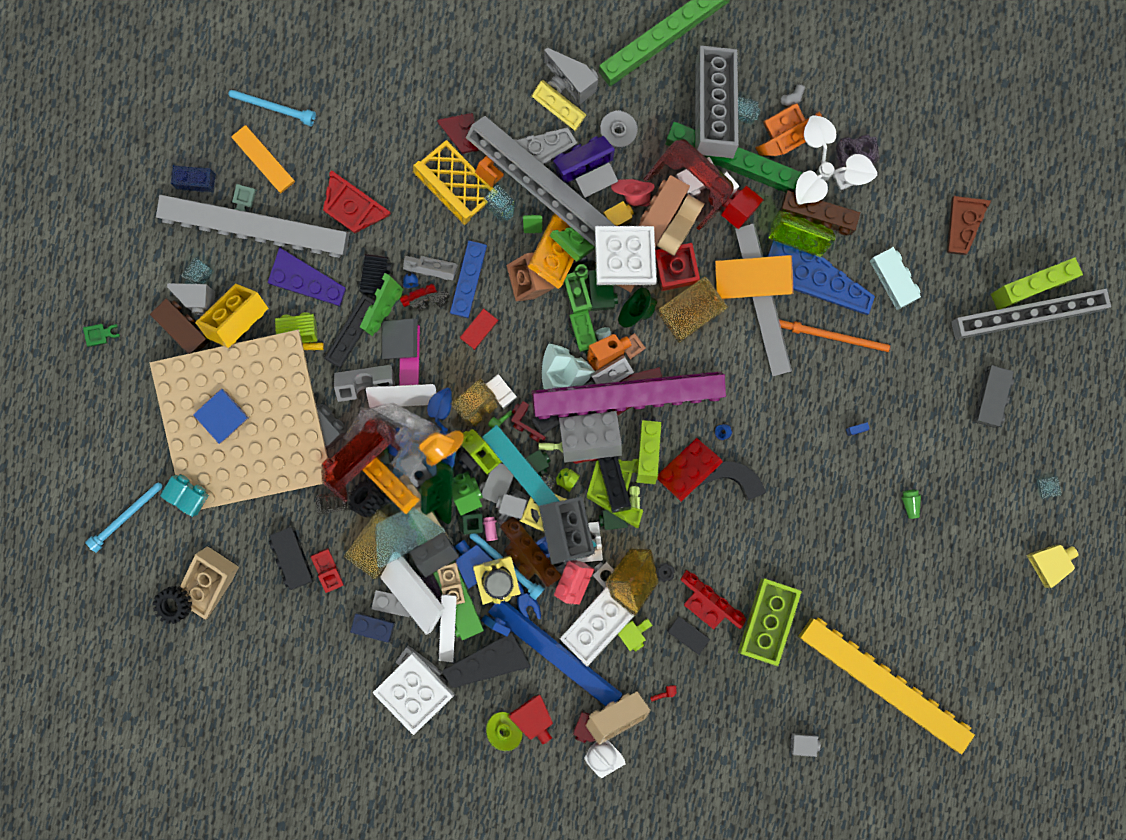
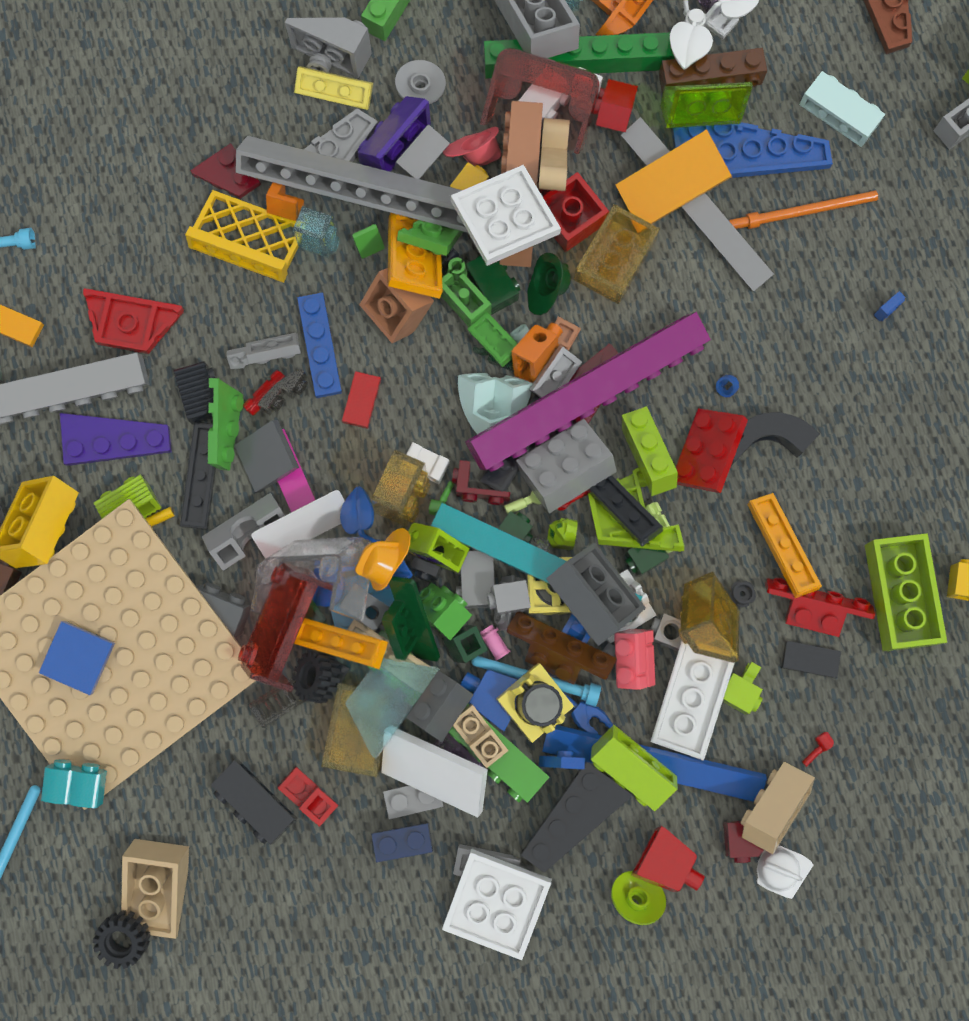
camera: 20 degrees left, 5 degrees down
(410, 279) = (247, 375): blue hinge -> none
(447, 628) = (501, 797): white sticker -> none
(539, 650) = (633, 768): none -> lime brick
(707, 554) = (784, 545): none -> light orange tile

